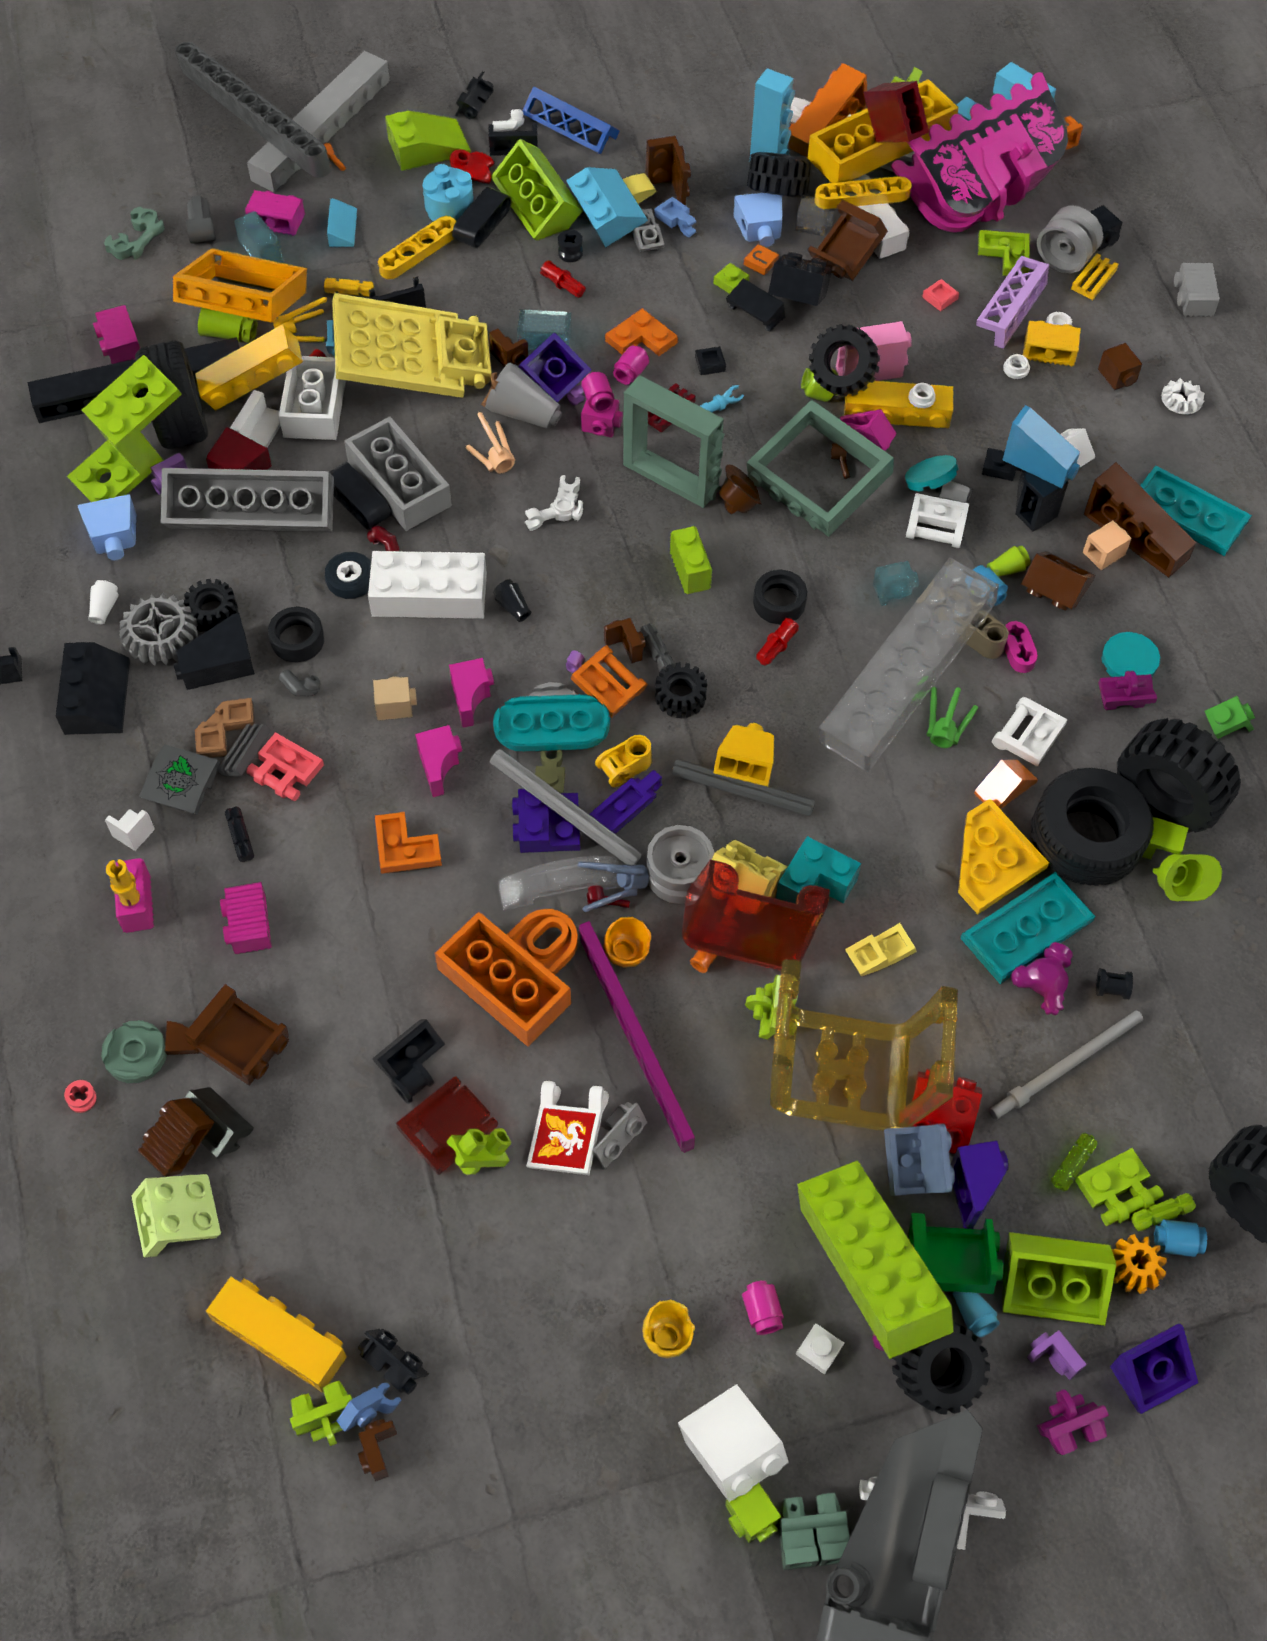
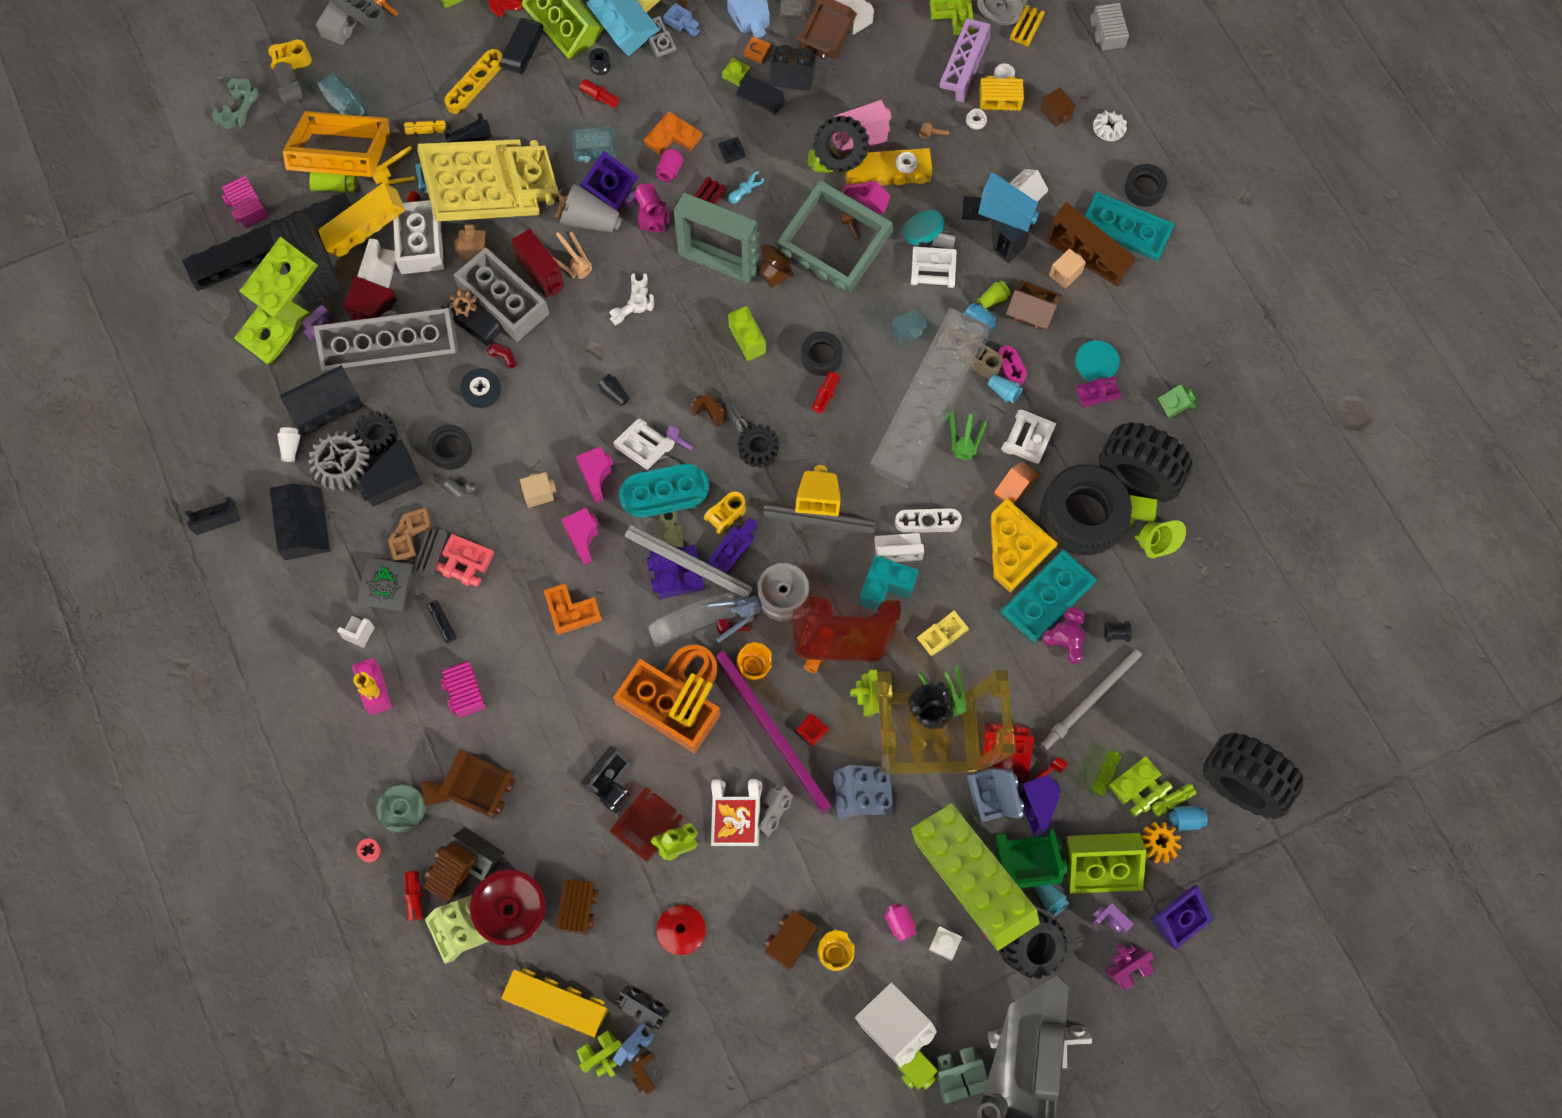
camera: 10 degrees left, 10 degrees up
(110, 525) = (278, 373): light blue torso -> none
(122, 1162) = (413, 895): none -> red axle
(152, 556) = (321, 400): none -> black slope
(214, 188) = (291, 52): none -> yellow piece
(238, 1175) = (504, 890): none -> dark red dish
(277, 211) = (350, 65): dark pink brick -> none
(332, 1212) = (577, 907): none -> reddish brown brick
(341, 224) = (406, 69): medium azure slope -> none
(346, 477) = (459, 306): none -> medium nougat gear
(373, 410) = (470, 242): none -> medium nougat brick
(427, 584) = (544, 388): white brick -> none
(447, 192) = (489, 28): medium azure brick -> none
(449, 444) = (538, 263): none -> dark red brick
(467, 1284) = (684, 942): none -> red dish
(505, 350) = (565, 168): reddish brown bracket -> none
(531, 670) = (639, 448): none -> white plate
(549, 951) = (699, 682): none -> yellow tile
(603, 686) = (696, 452): orange plate -> none
(608, 1304) = (790, 940): none -> reddish brown brick
(687, 1042) = (812, 730): none -> red tile
(741, 1128) = (862, 791): none -> sand blue bracket
(754, 871) = (839, 590): light yellow brick -> none
(844, 837) = (899, 547): none -> white panel
(850, 1029) = (931, 705): none -> black hair
(882, 1035) = (958, 701): none -> bright green plant
(893, 803) = (935, 513): none -> white beam
(940, 295) = (906, 61): coral tile -> none
(954, 369) = (927, 129): none -> medium nougat hand
(1010, 672) = (1005, 388): none -> medium azure cone
(1011, 1140) = (1058, 764): none -> red hand
(1219, 451) = (1148, 171): none -> black tyre

